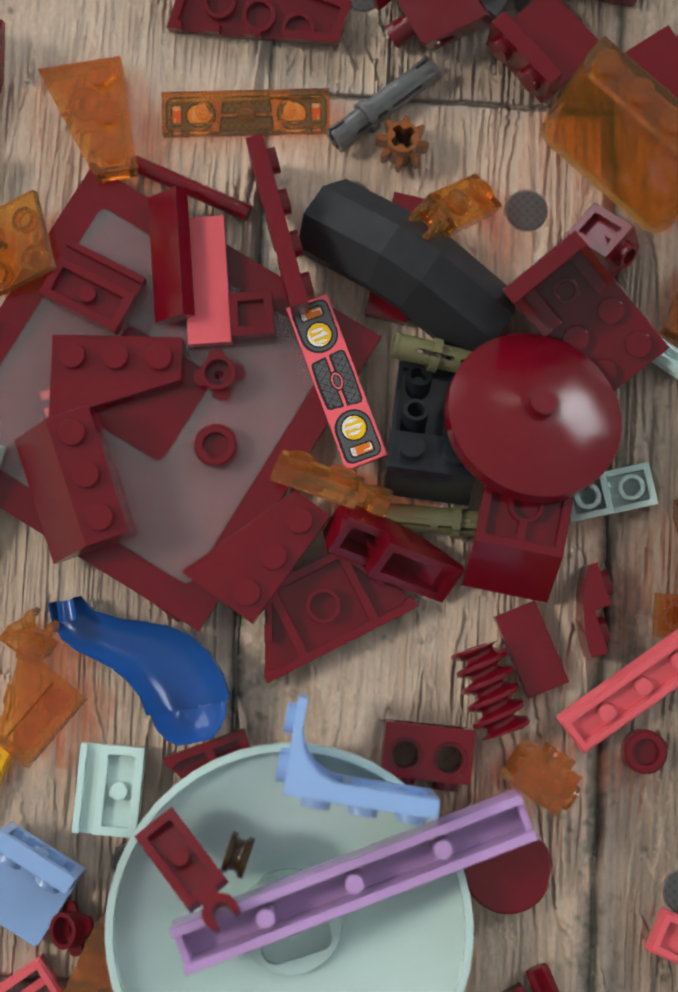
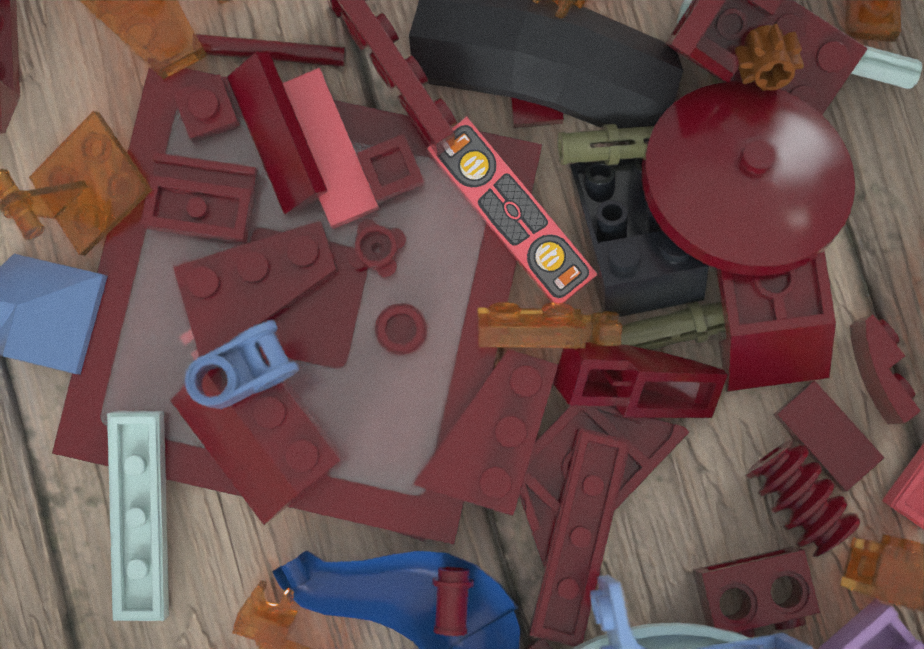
camera: 20 degrees left, 0 degrees up
(76, 430) = (244, 366): none -> medium blue piece
(123, 218) = (206, 108): none -> dark red plate
(181, 674) = (452, 600): none -> dark red pin
(300, 658) = (579, 537): none -> dark red tile
(583, 327) = (769, 57): none -> dark orange gear
(615, 493) = (870, 224): light aqua slope -> none

